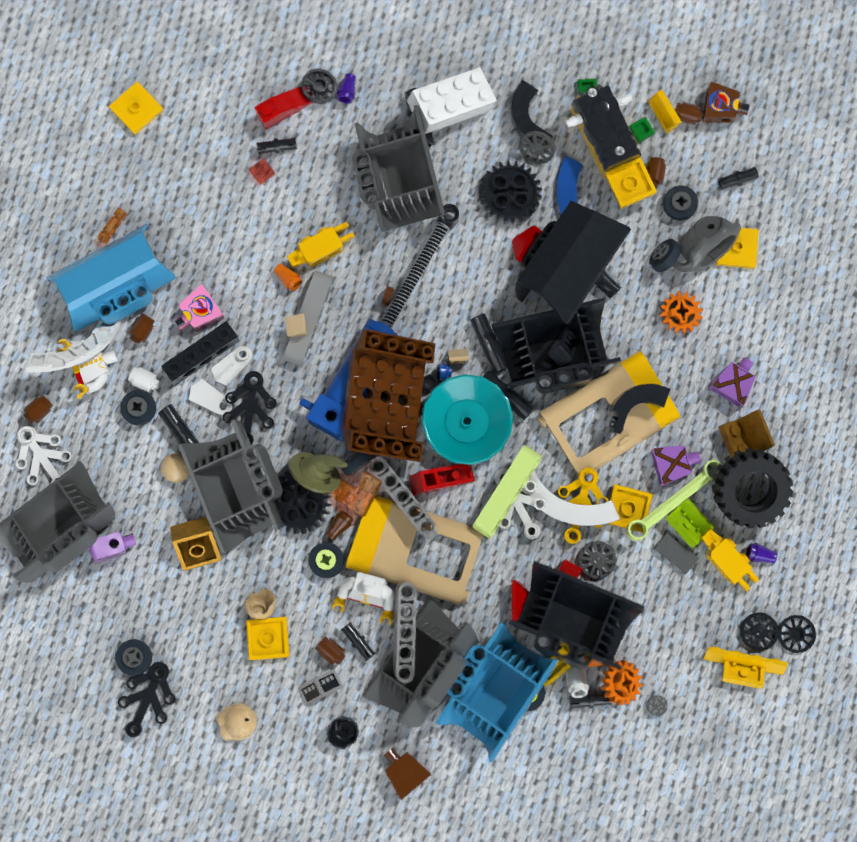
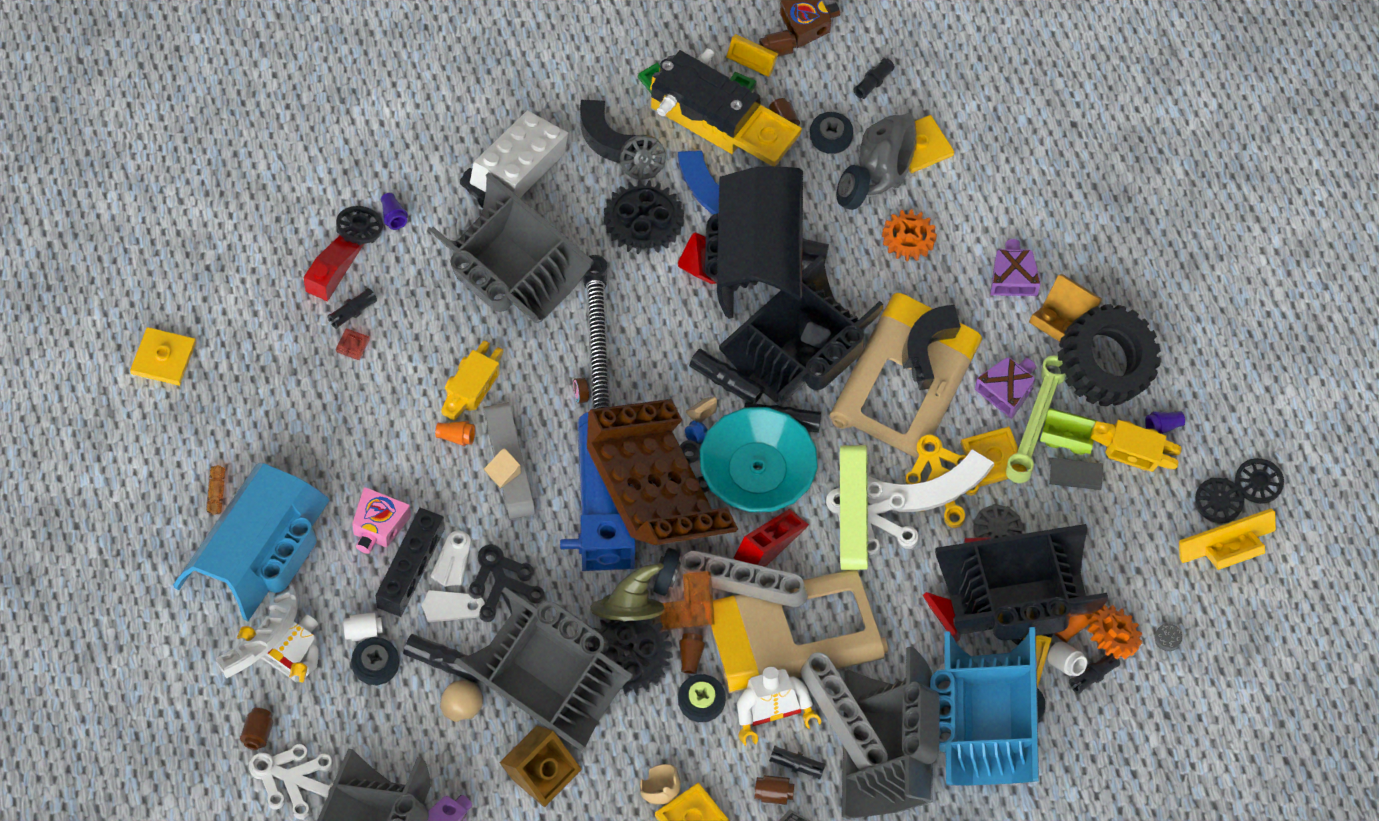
camera: 35 degrees left, 20 degrees down
(141, 328) = (323, 575): reddish brown brick -> none

